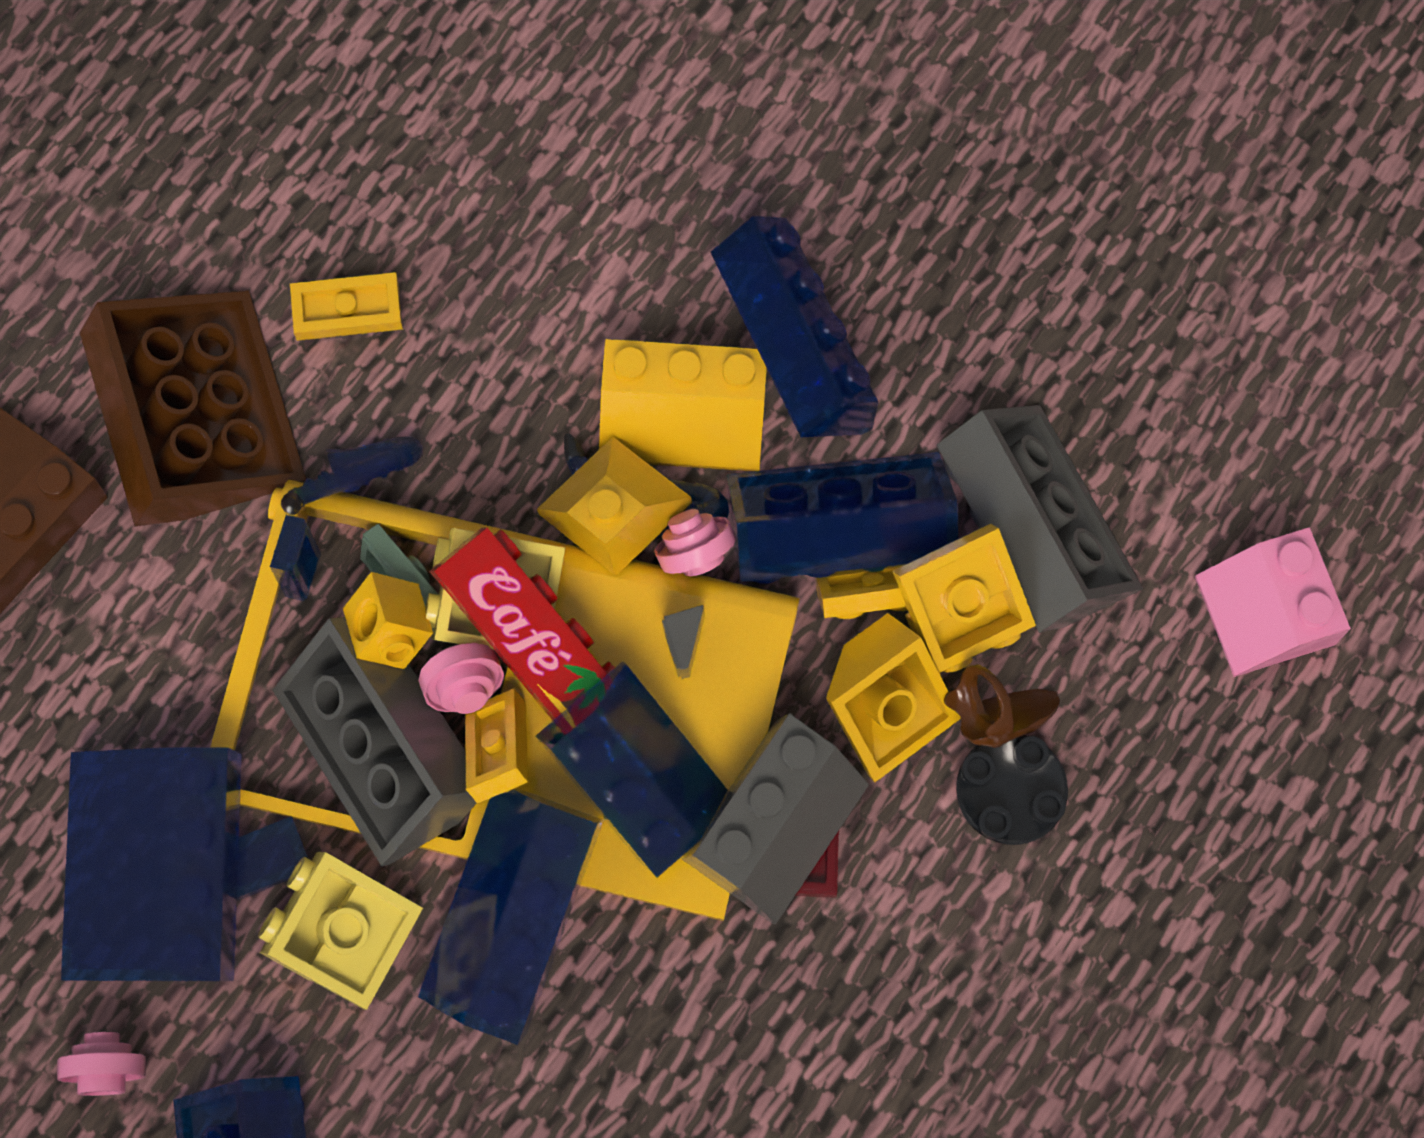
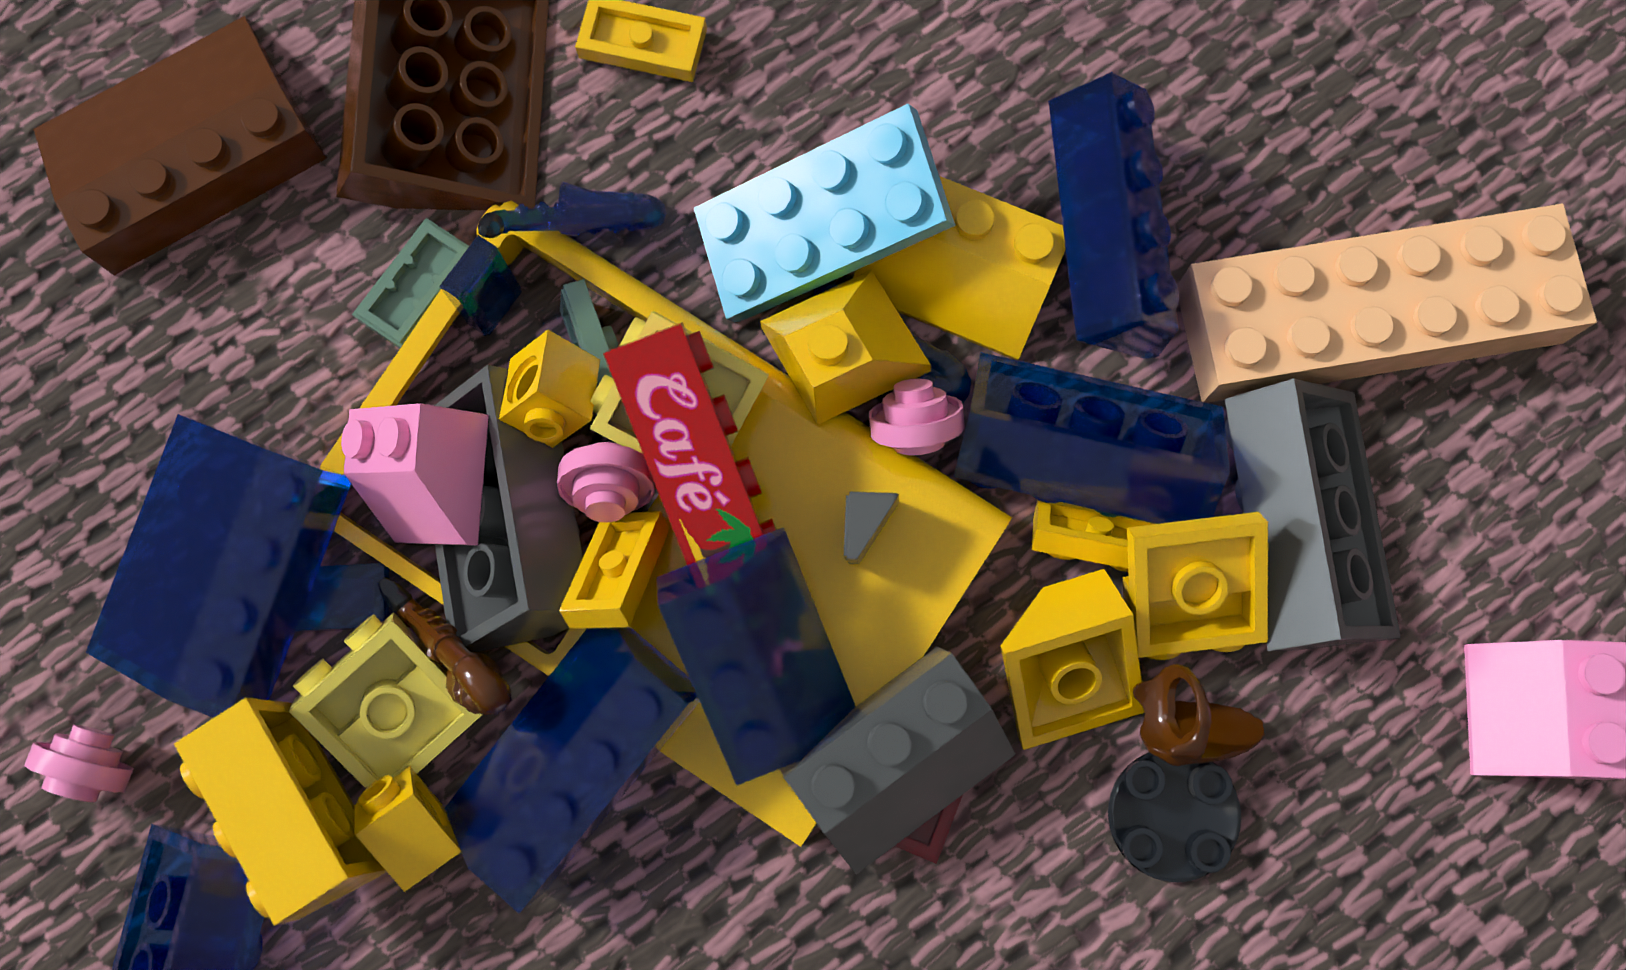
camera: 25 degrees right, 5 degrees up
(228, 578) = (410, 283): none -> sand green plate
(287, 1035) = (277, 808): none -> yellow slope
(301, 726) = (419, 470): none -> bright pink slope
(396, 1016) = (404, 827): none -> yellow brick
(409, 872) = (471, 677): none -> reddish brown piece
(557, 406) = (824, 214): none -> plate
(1034, 325) = (1384, 302): none -> light nougat brick

